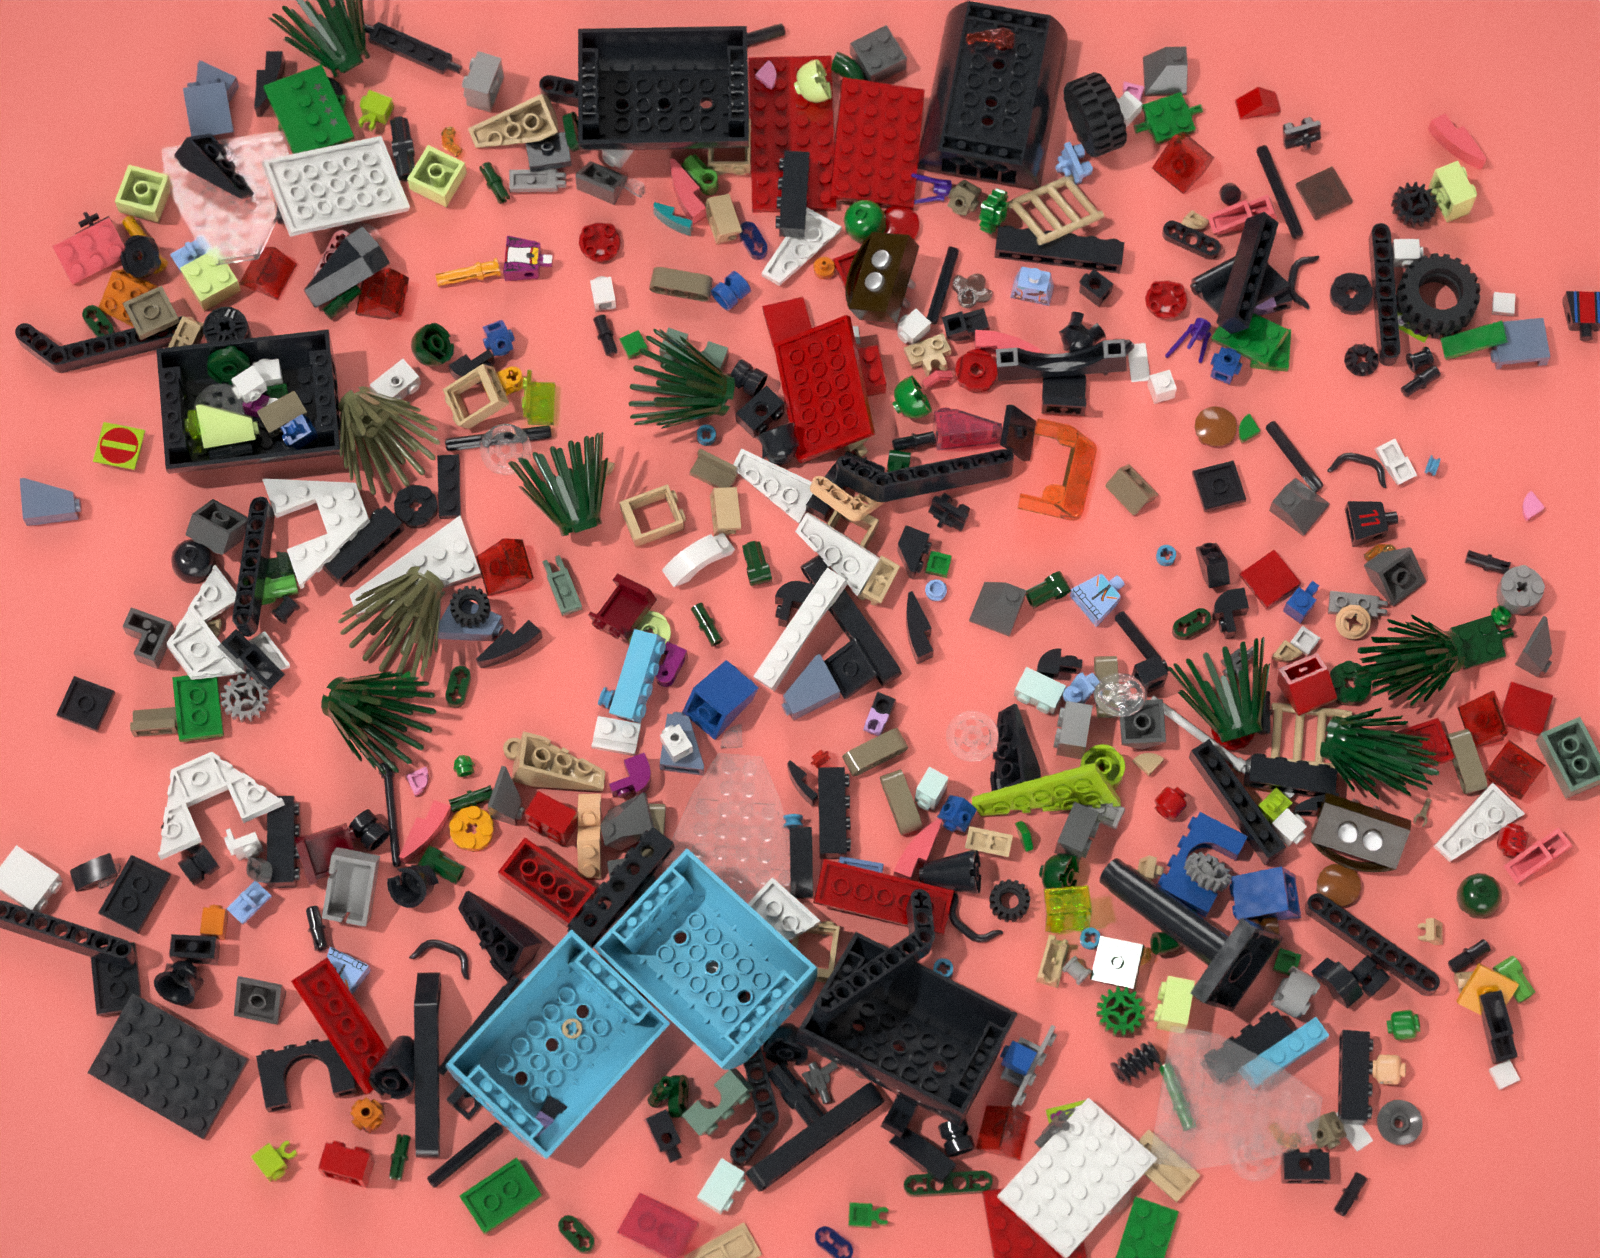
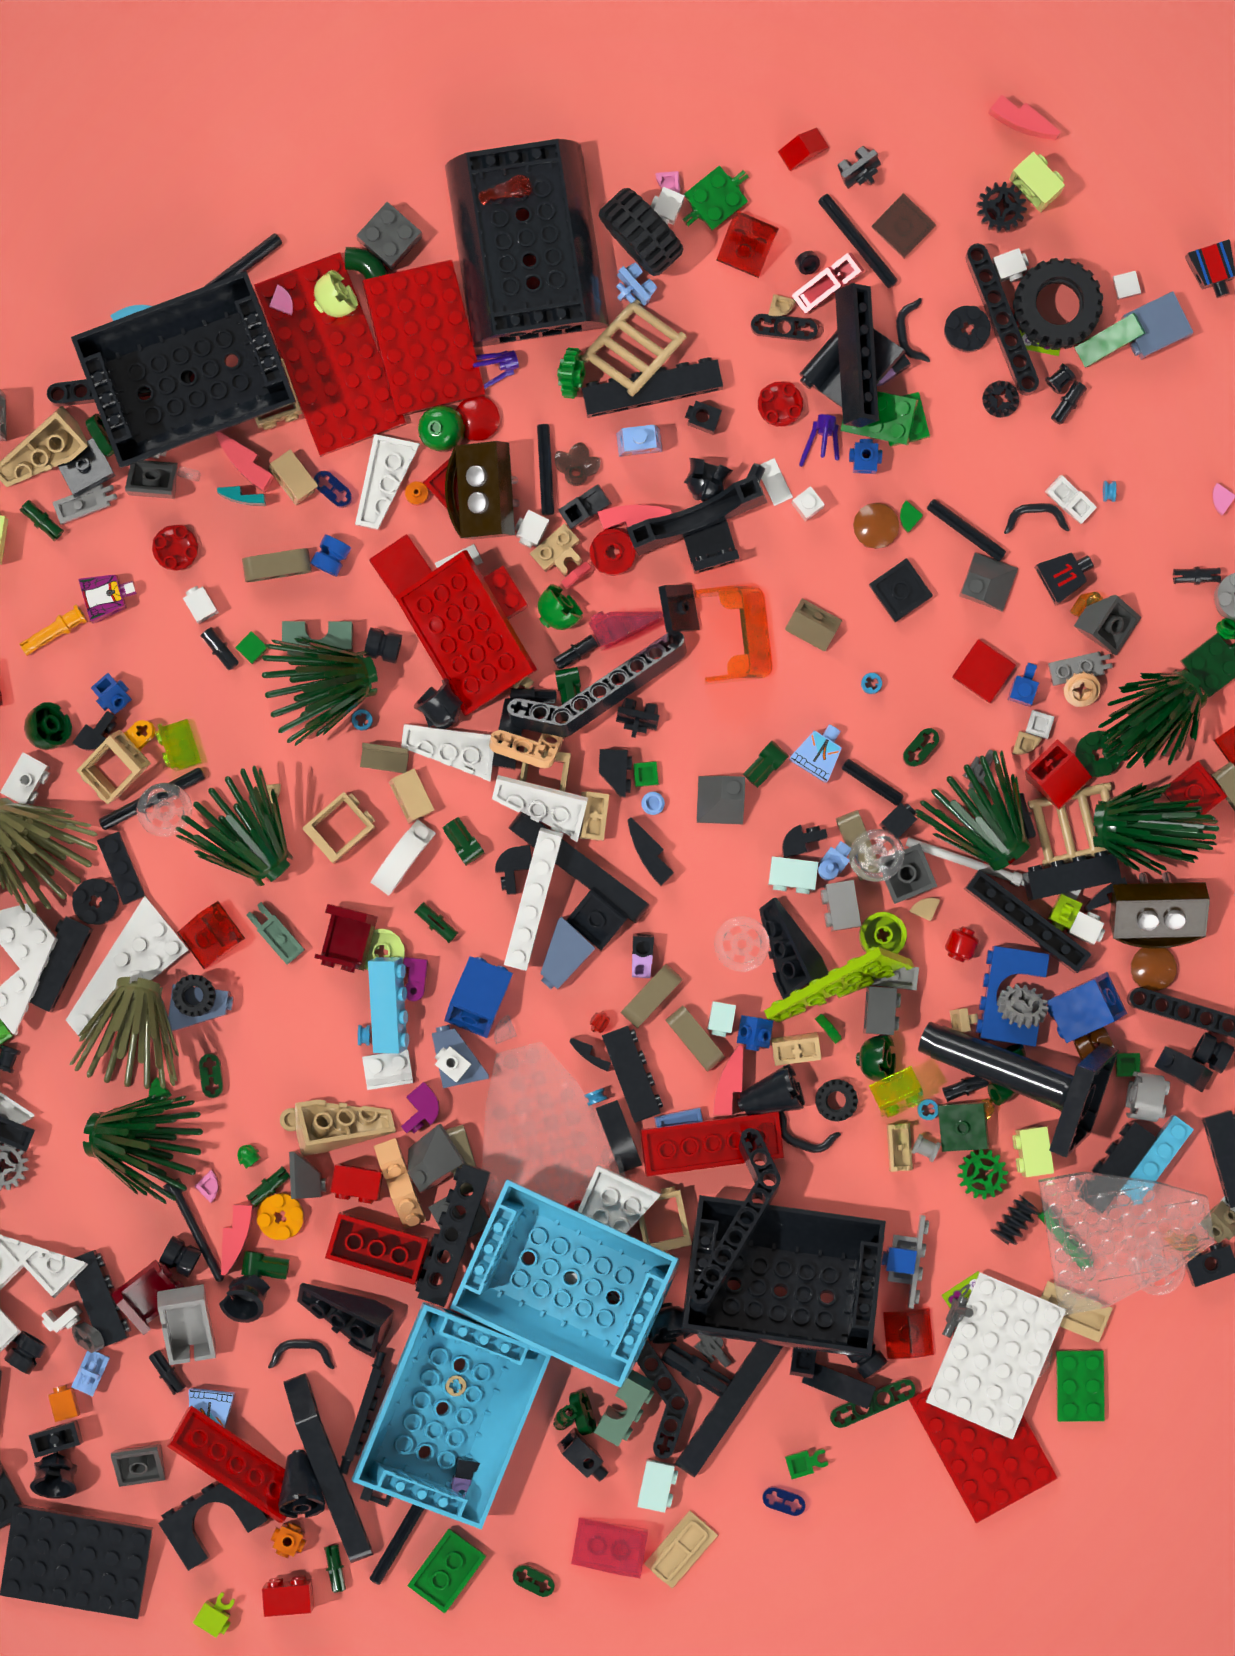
camera: 20 degrees left, 15 degrees up
(510, 645) = (247, 1016): black slope -> none
(700, 173) = (251, 435): bright green piece -> none
(766, 401) = (409, 663): black brick -> none
(794, 194) = (358, 426): black brick -> none
(947, 964) = (793, 1199): dark azure bush -> none
(964, 198) = (535, 367): dark tan brick -> none
(1130, 929) = (964, 1087): none -> black axle
(1165, 72) = (695, 147): dark grey slope -> none
(1213, 565) = (922, 678): black slope -> none
(1227, 606) = (949, 718): black brick -> none
(1423, 812) = (1213, 863): dark tan hand -> none

